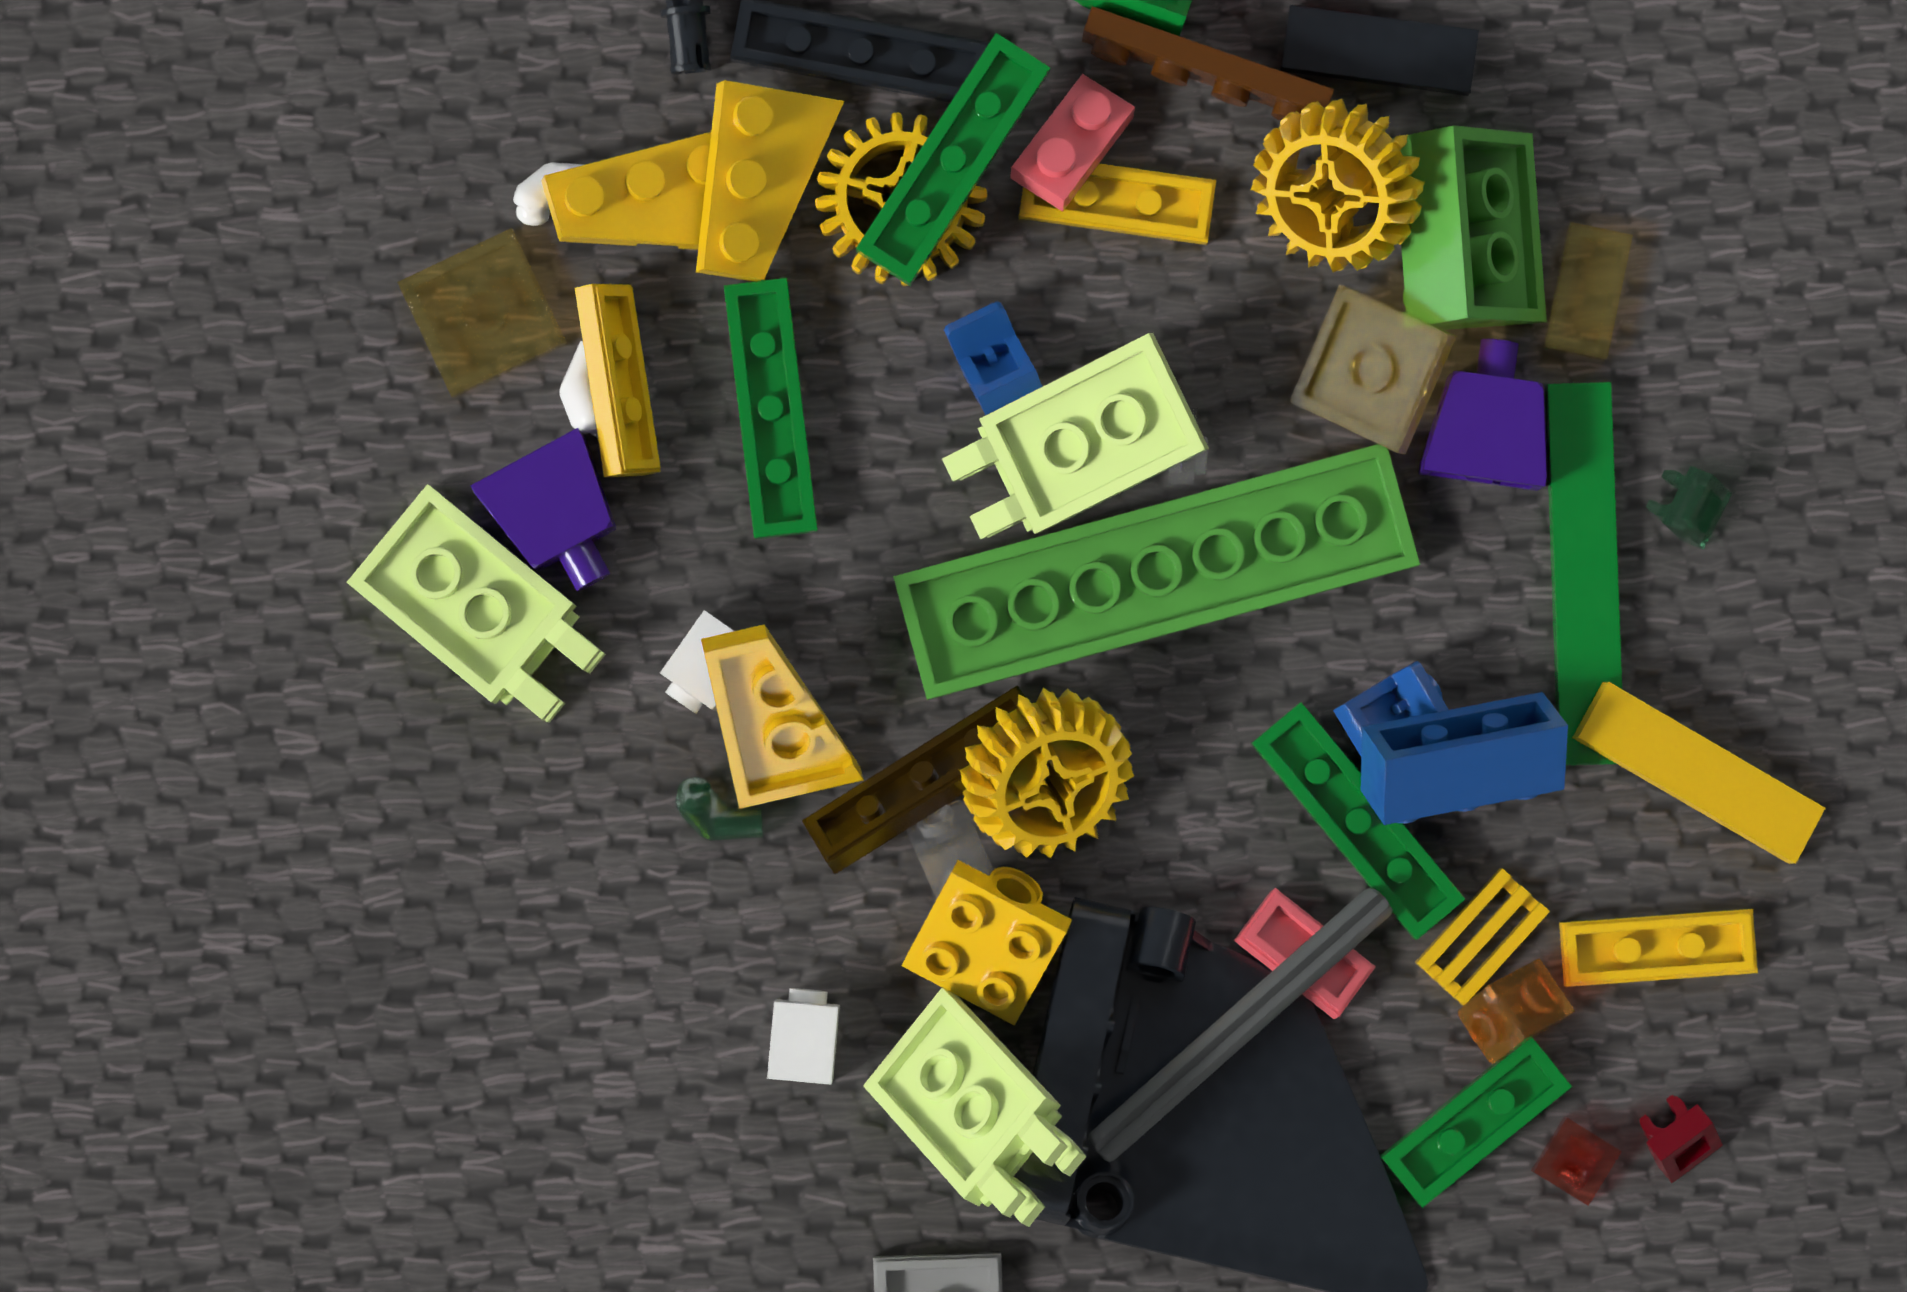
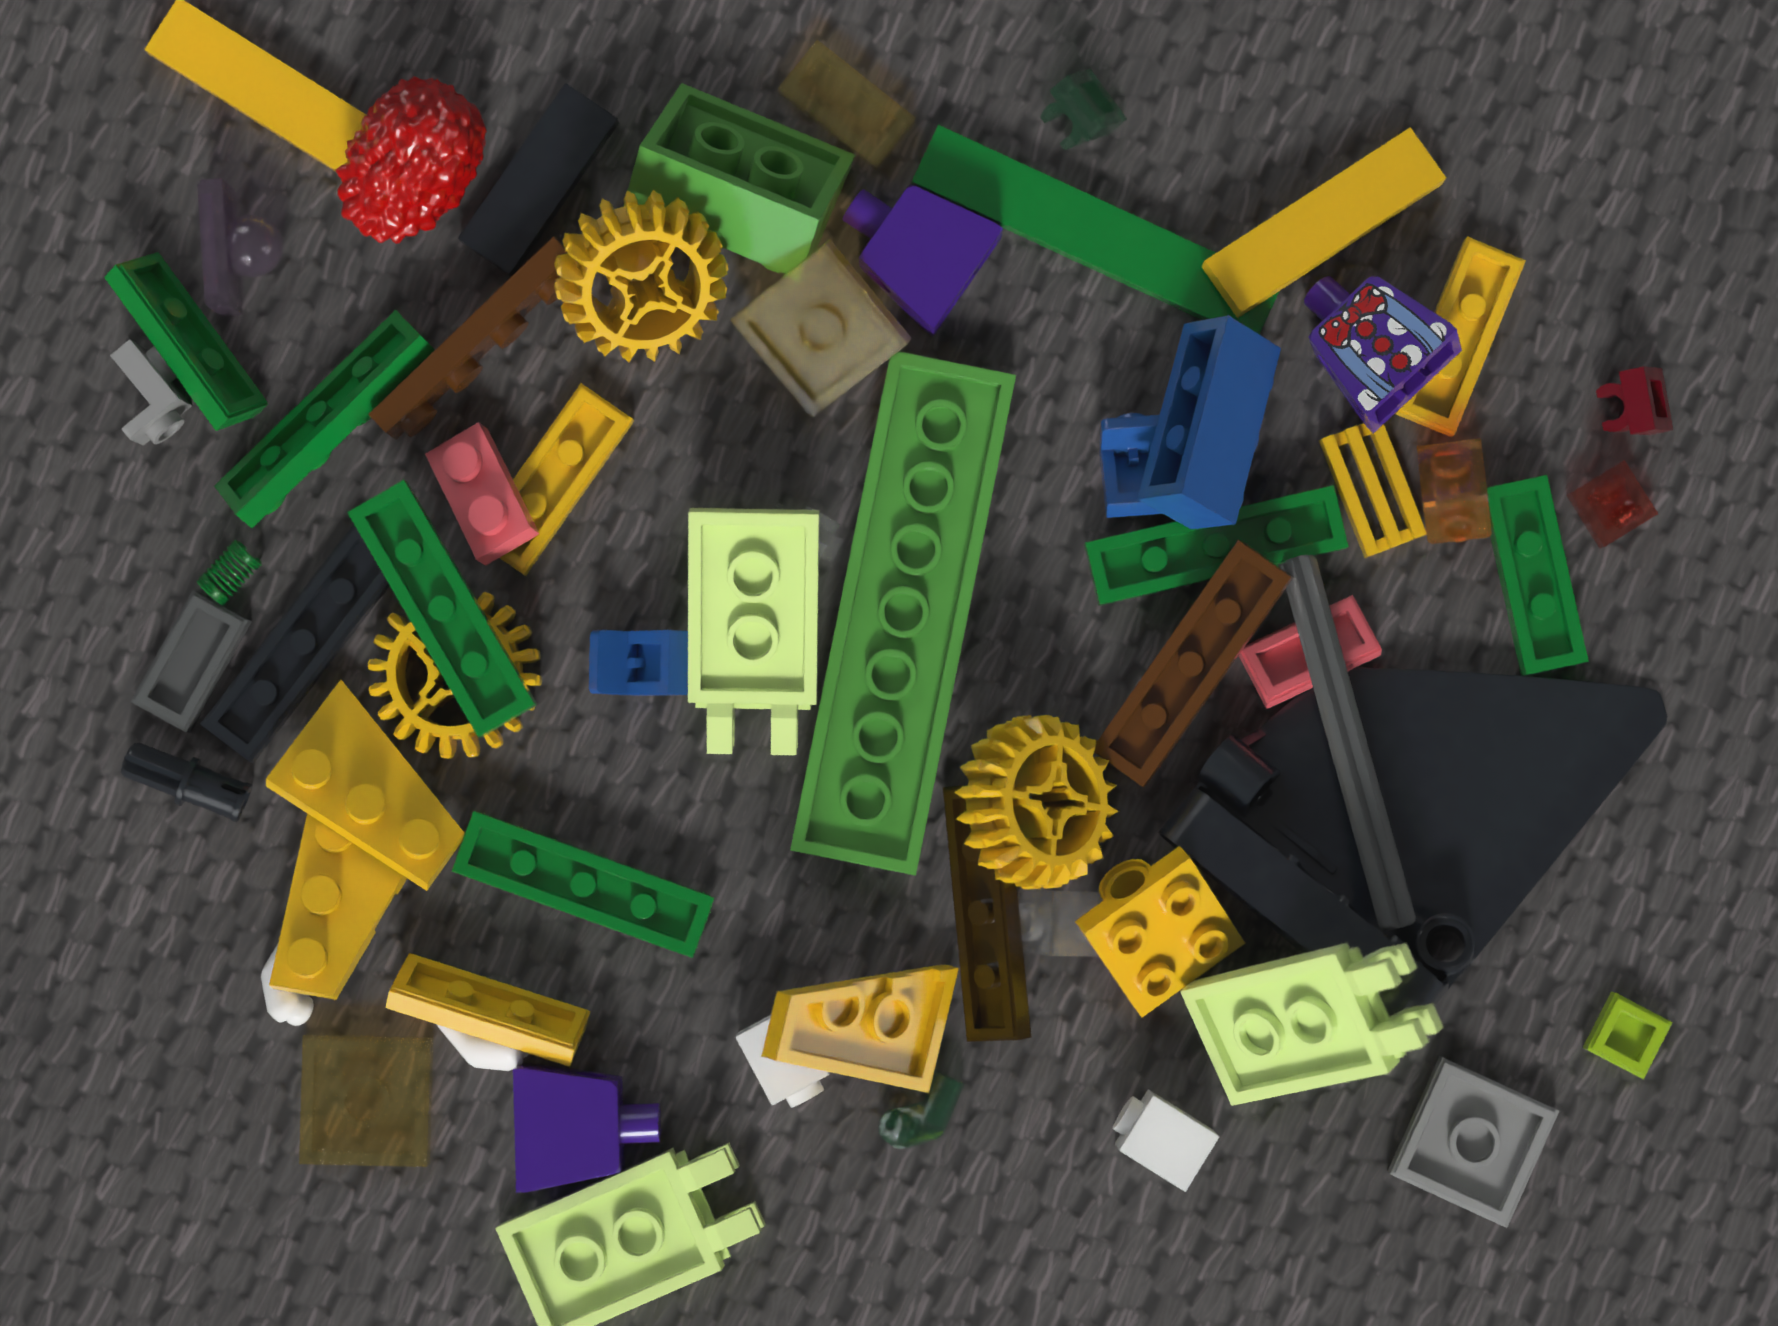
camera: 65 degrees left, 0 degrees up
(1241, 851) = (1192, 663): none -> reddish brown plate
(1611, 875) = (1378, 345): none -> torso

